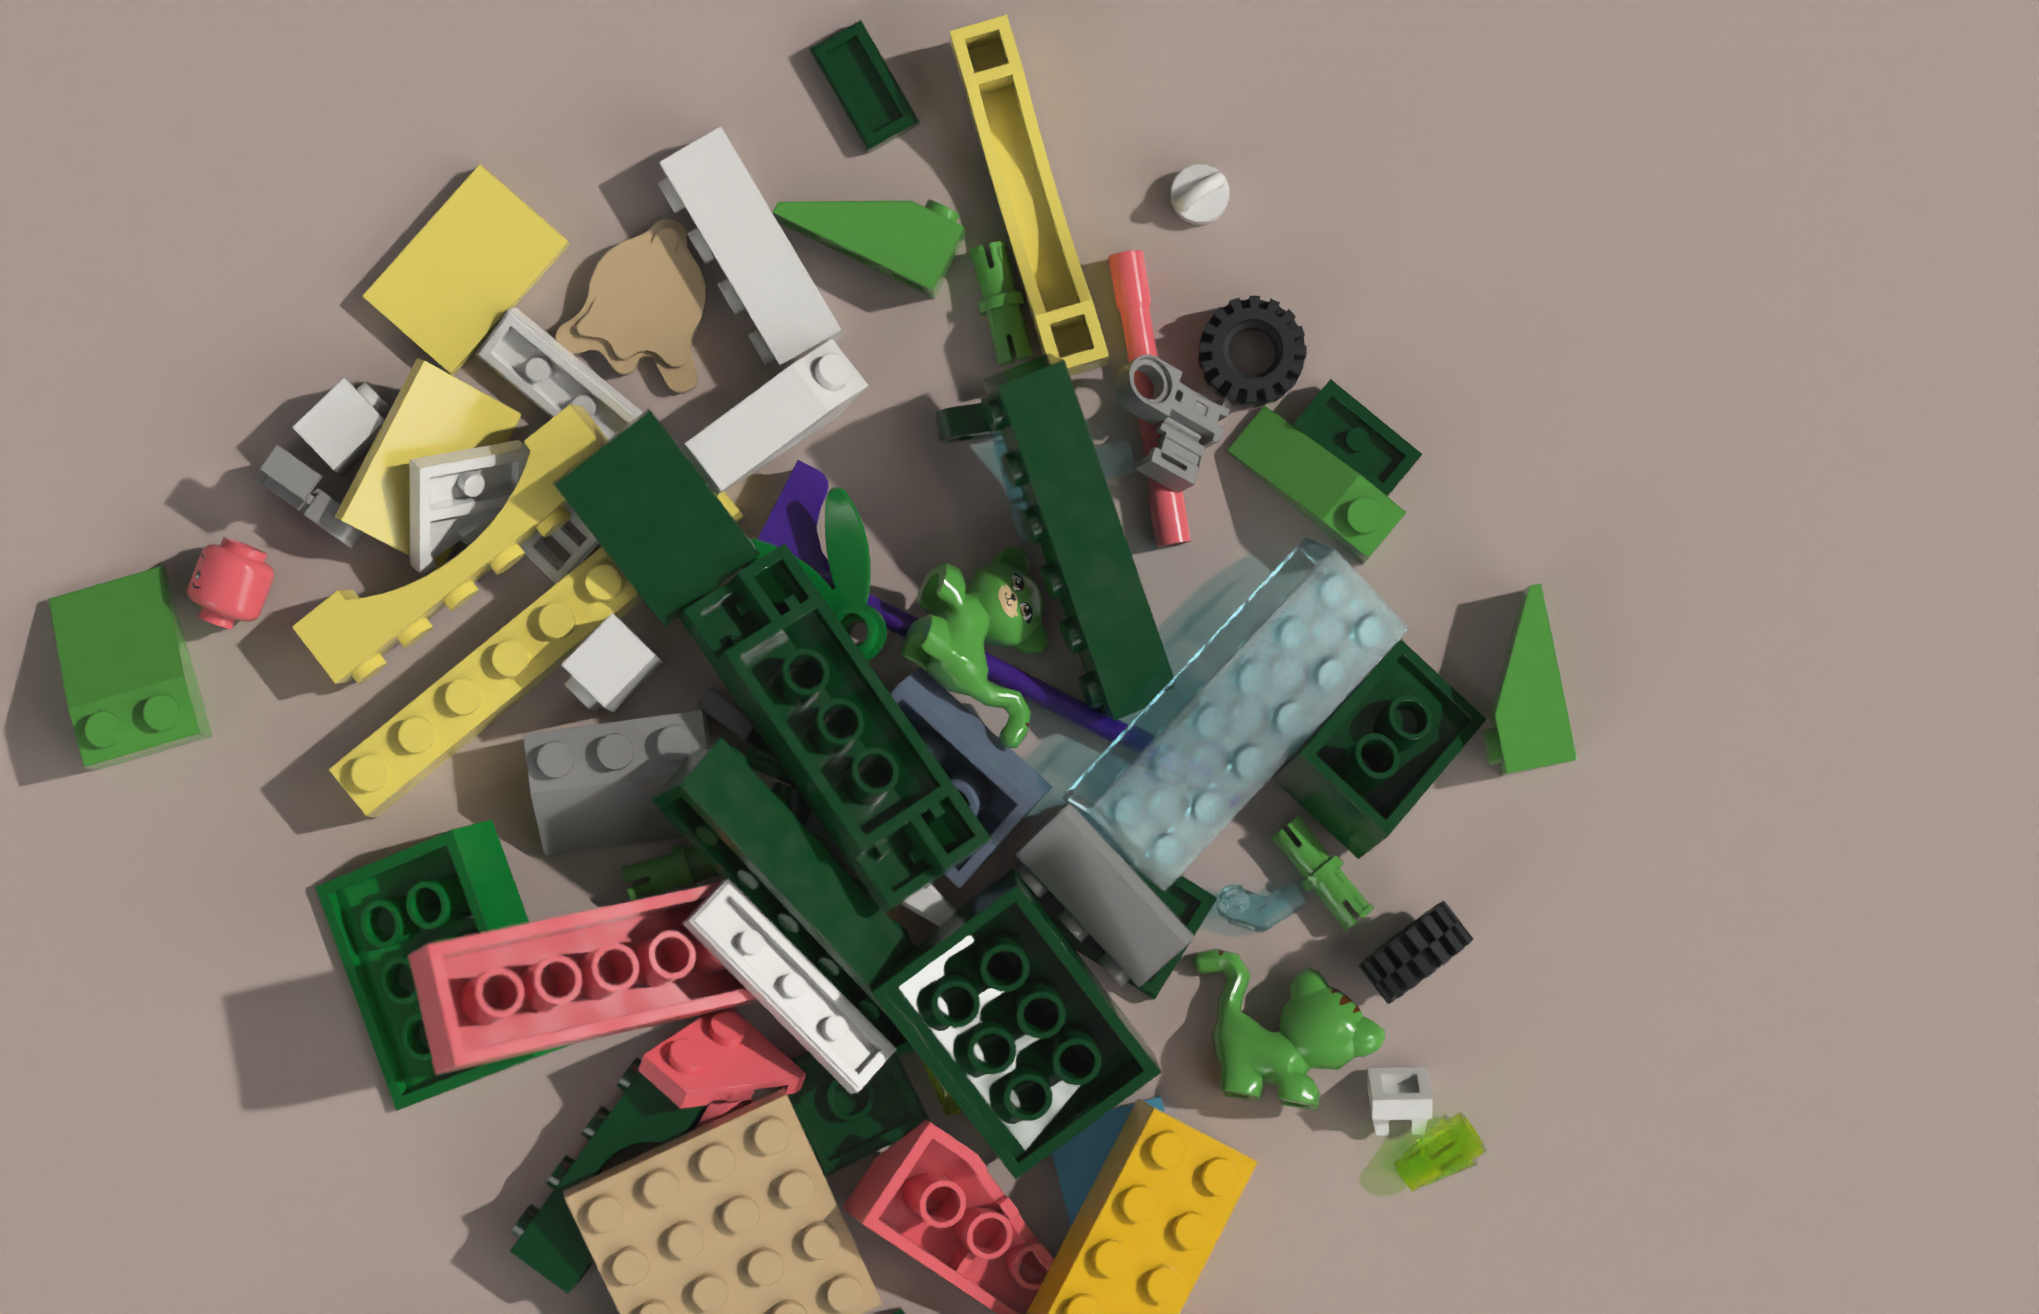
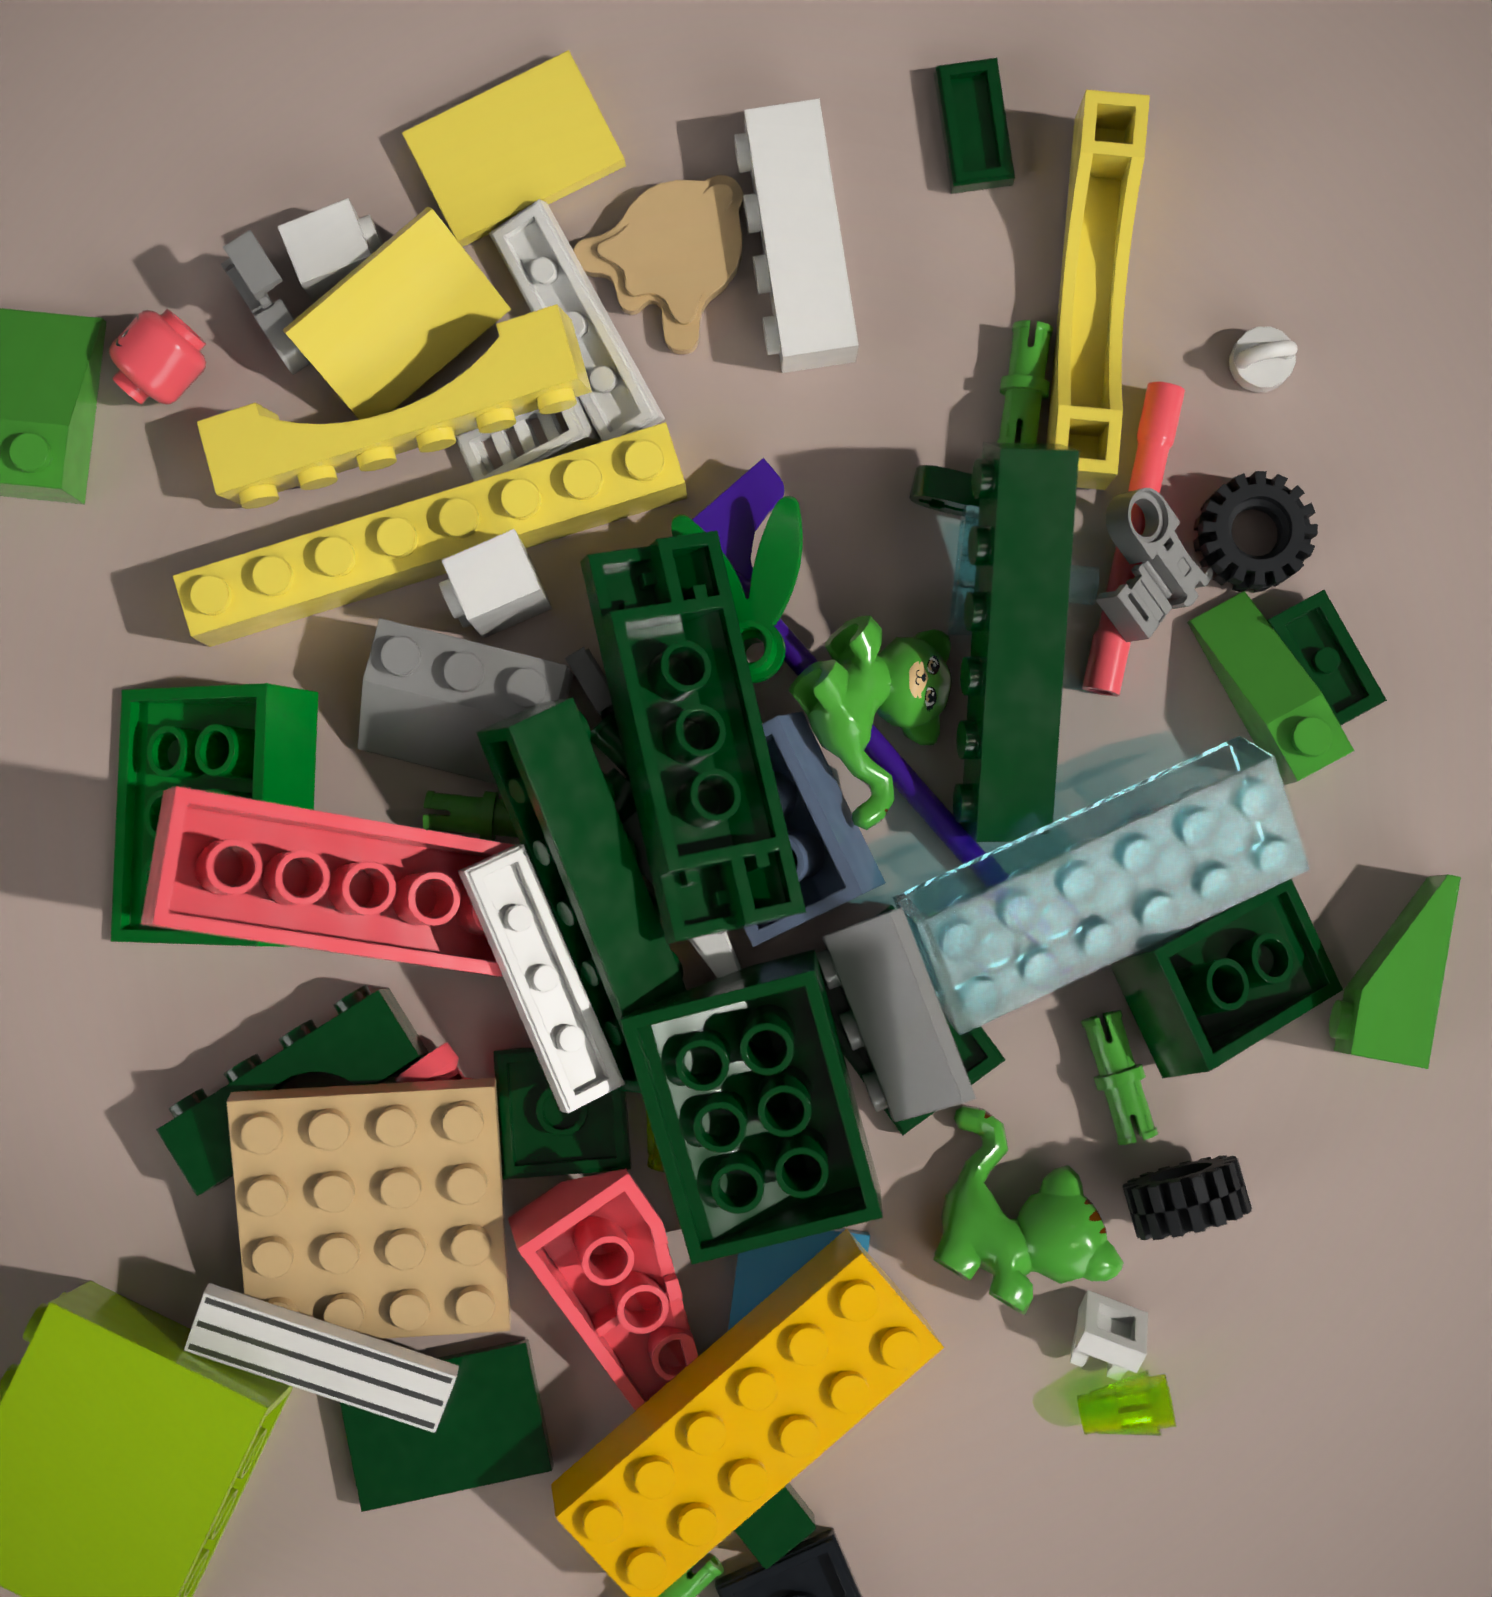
camera: 25 degrees right, 0 degrees up
(459, 496) = (409, 357): white wing -> none
(656, 517) = (597, 451): dark green tile -> none
(718, 1060) = (441, 1022): coral wing -> none
(775, 417) = (758, 404): white slope -> none
(888, 236) = (939, 275): bright green slope -> none
(1255, 910) = (1041, 1090): clear light blue arm -> none

